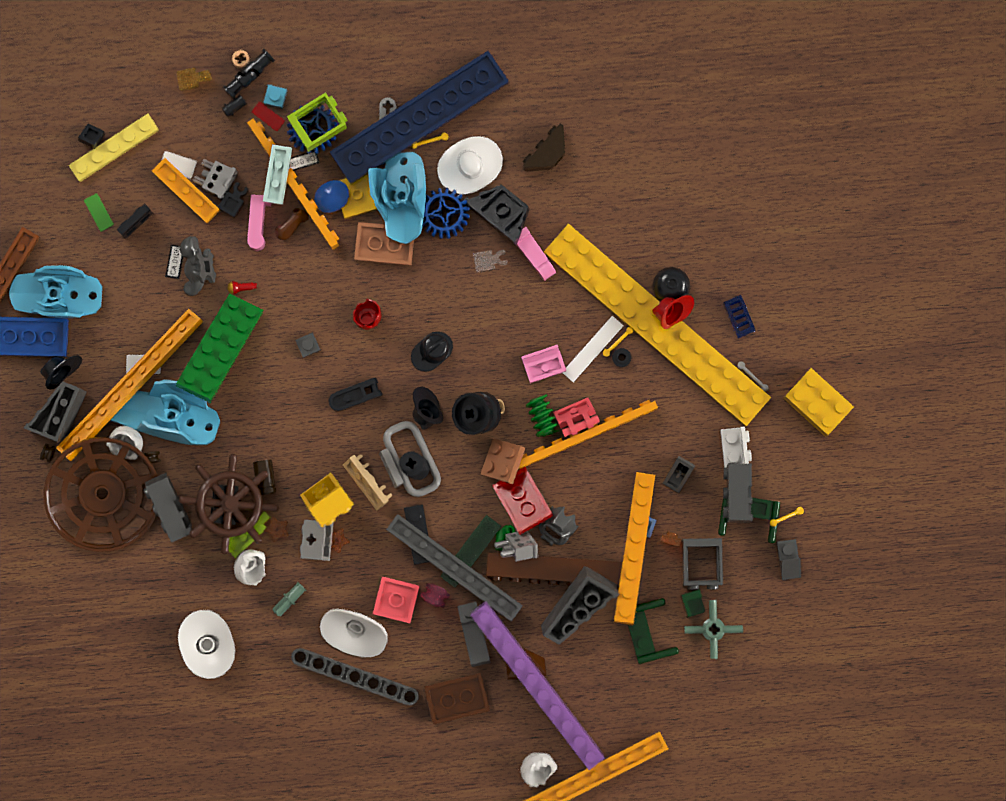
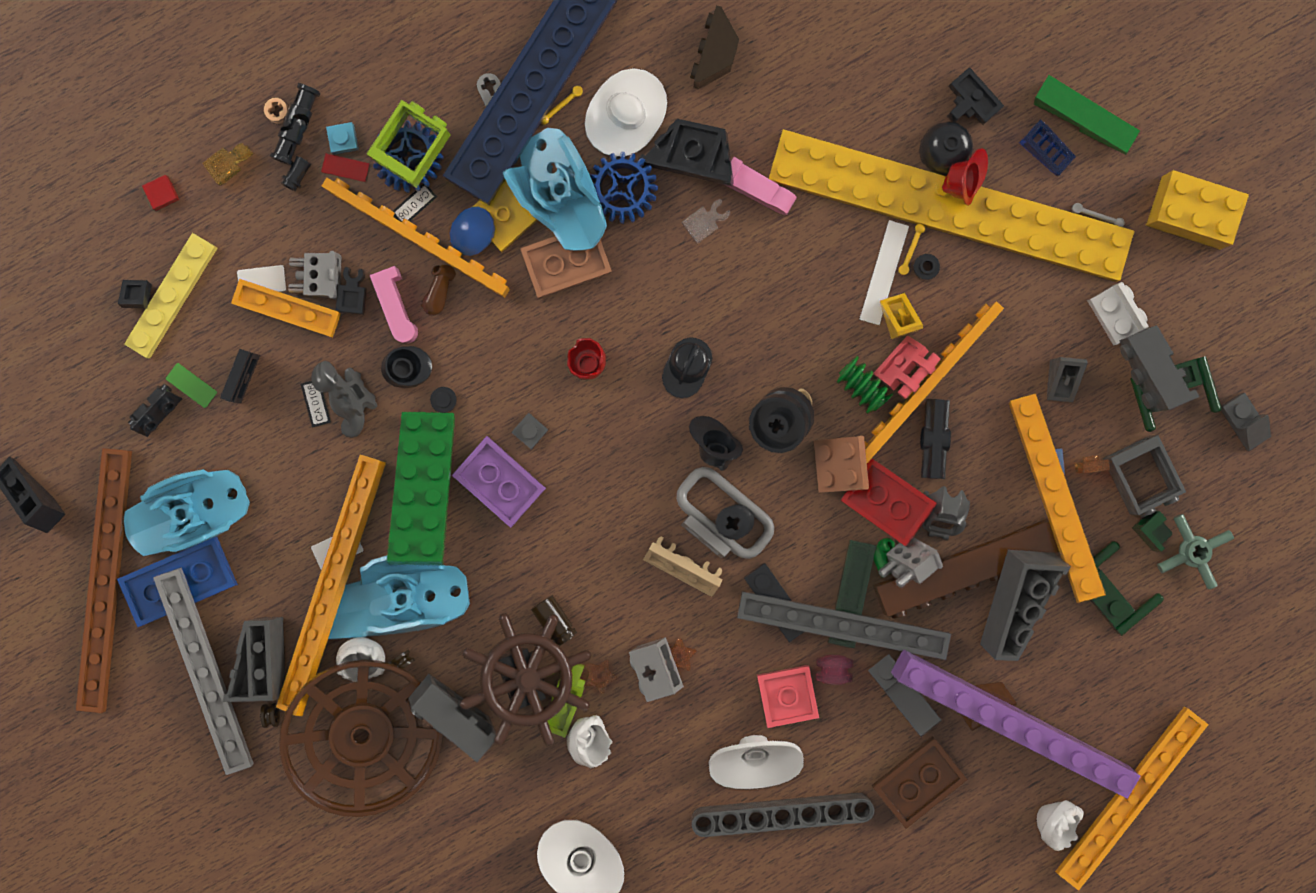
camera: 30 degrees left, 5 degrees up
(19, 403) = (203, 670): none -> light grey plate
(58, 369) = (234, 605): black piece -> none
(75, 215) = (147, 418): none -> black hinge
(139, 77) = (160, 192): none -> red tile
(235, 287) = (405, 400): red piece -> none
(246, 265) = (406, 367): none -> black hat
(260, 298) = (443, 399): none -> black plate
(271, 369) = (499, 481): none -> medium lavender plate
(277, 174) = (390, 234): light aqua plate -> none
(288, 599) = (655, 756): sand green axle -> none
(326, 500) = (647, 618): yellow brick -> none
(354, 395) = (617, 467): black plate -> none
(543, 364) = (834, 319): bright pink plate -> none
(574, 474) = (935, 438): none -> black piece
(588, 382) = (900, 316): none -> yellow slope
(704, 261) = (973, 98): none -> black hinge
(773, 306) = (1086, 115): none -> green slope
(798, 511) = (1230, 356): yellow hinge -> none

